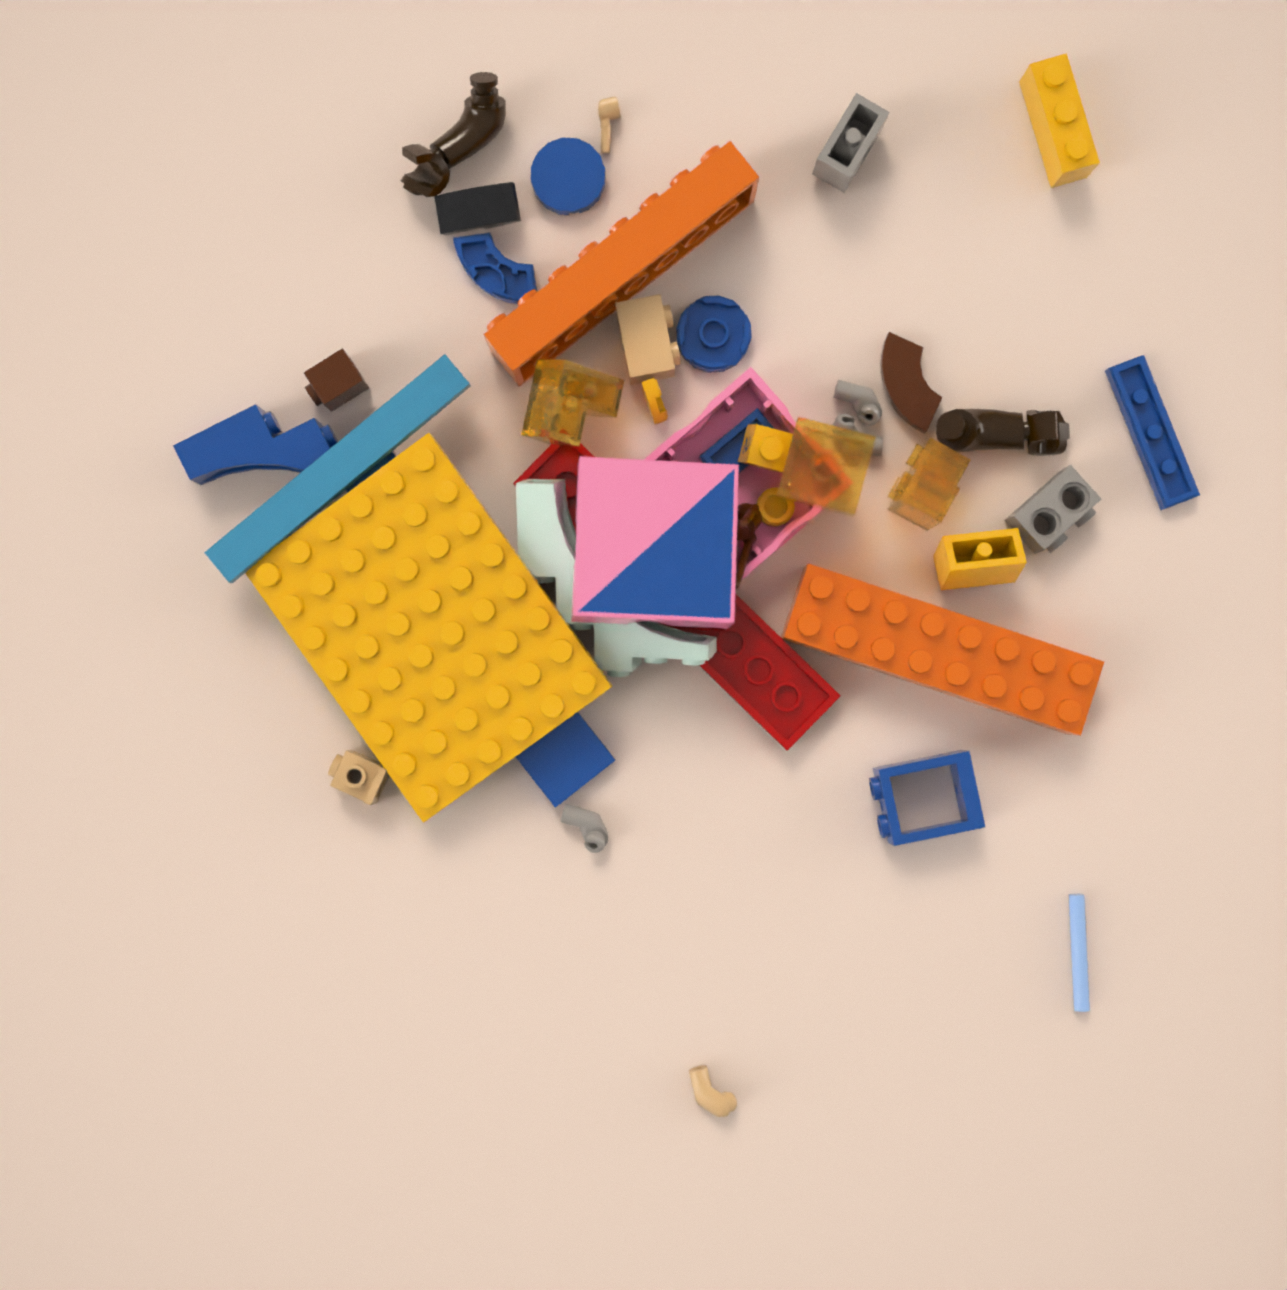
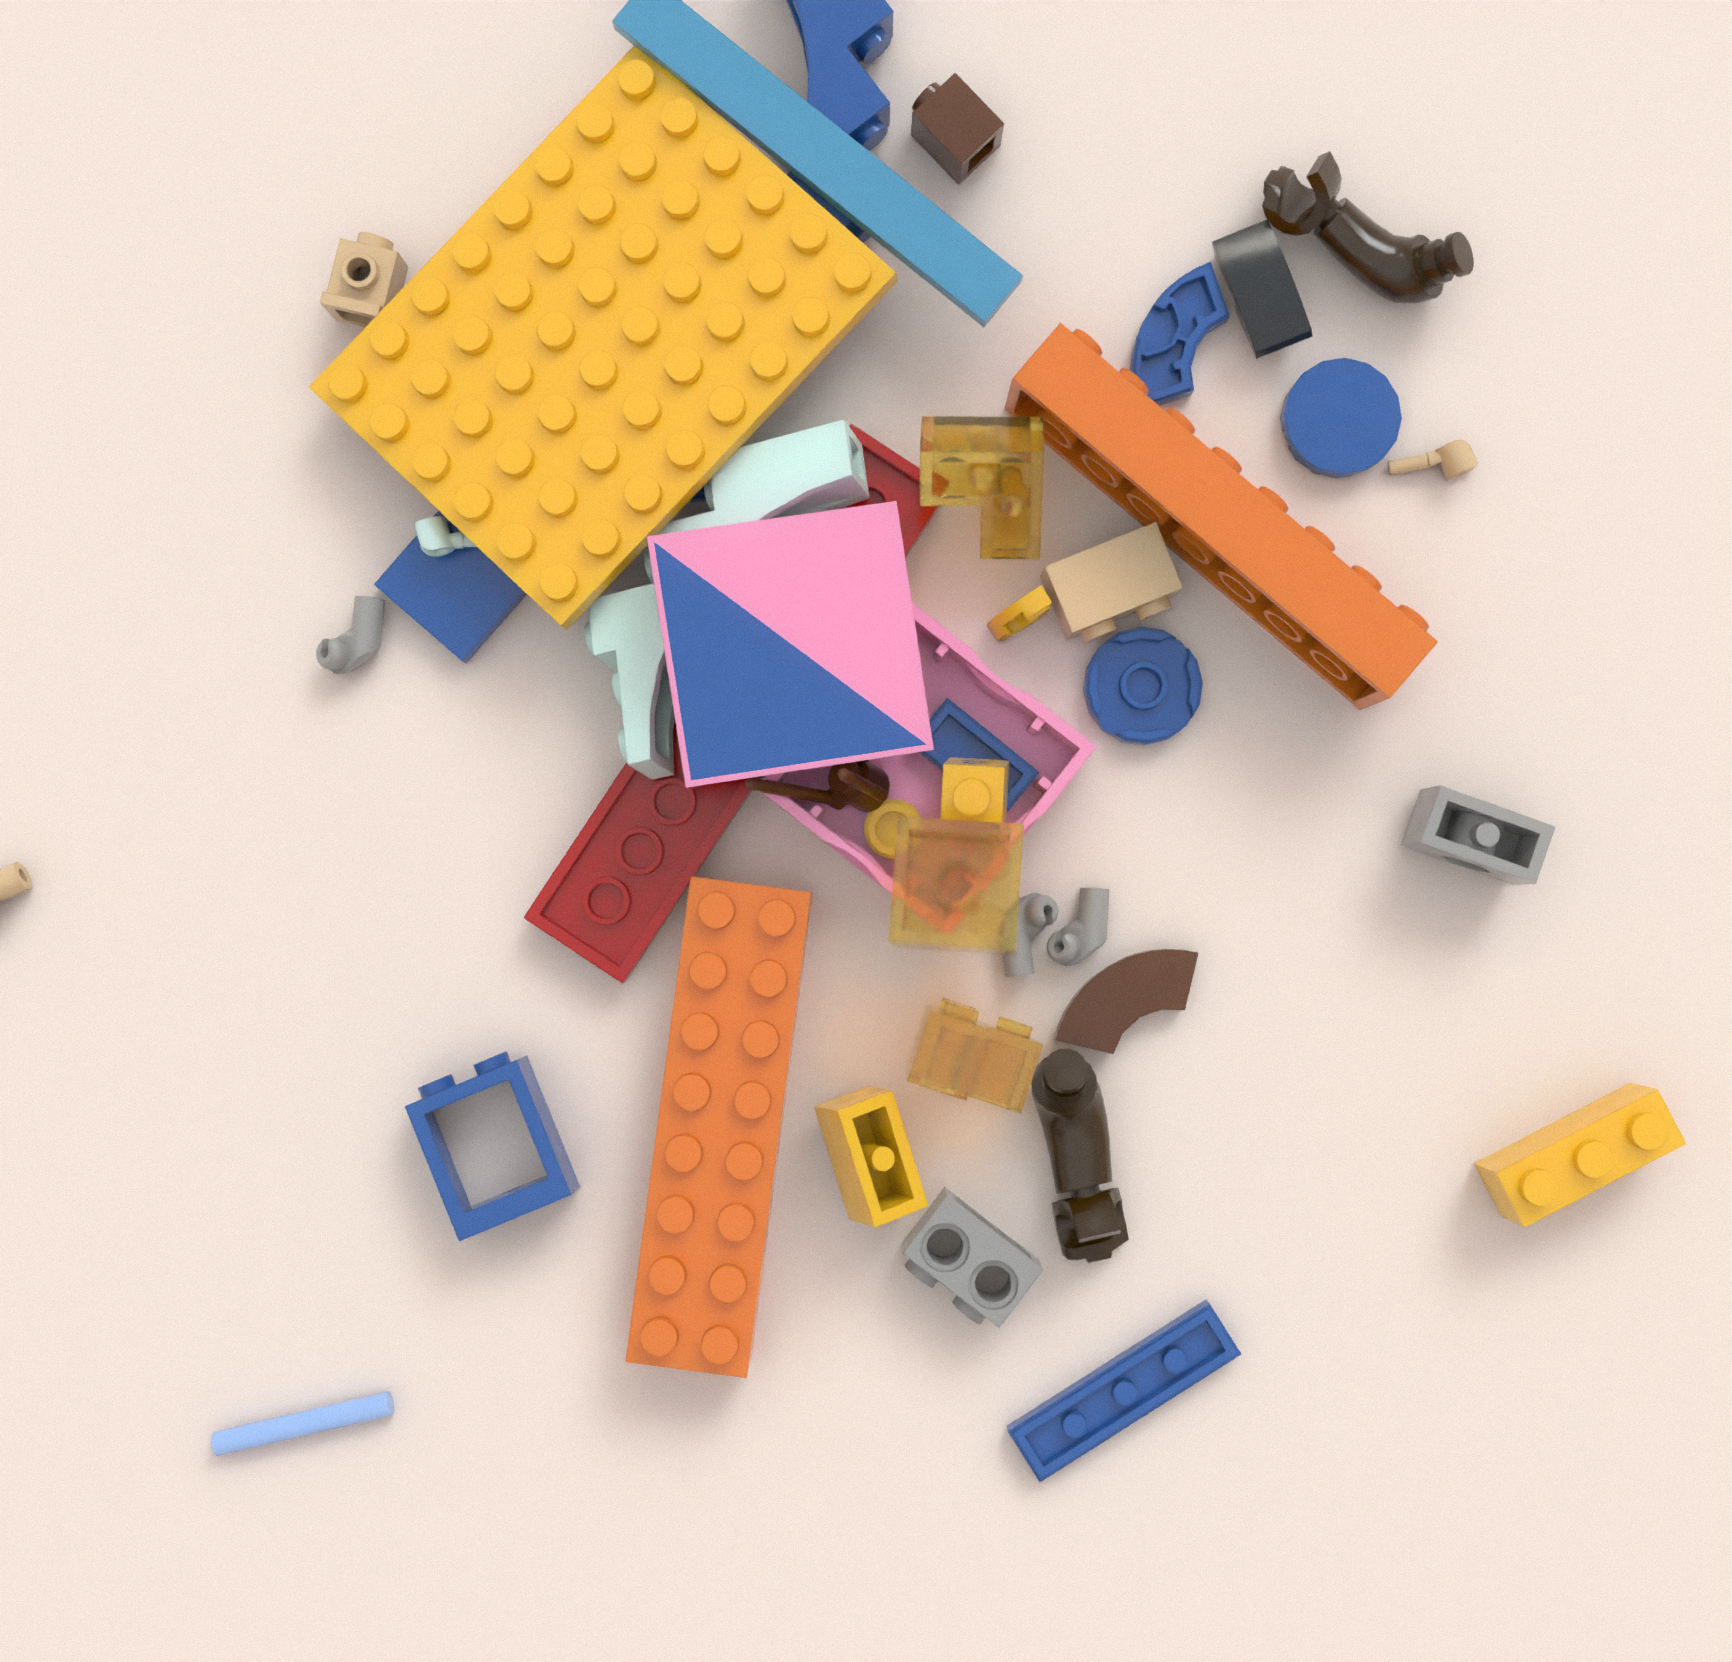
camera: 80 degrees right, 0 degrees up
(535, 760) = (436, 537): none -> light aqua hand

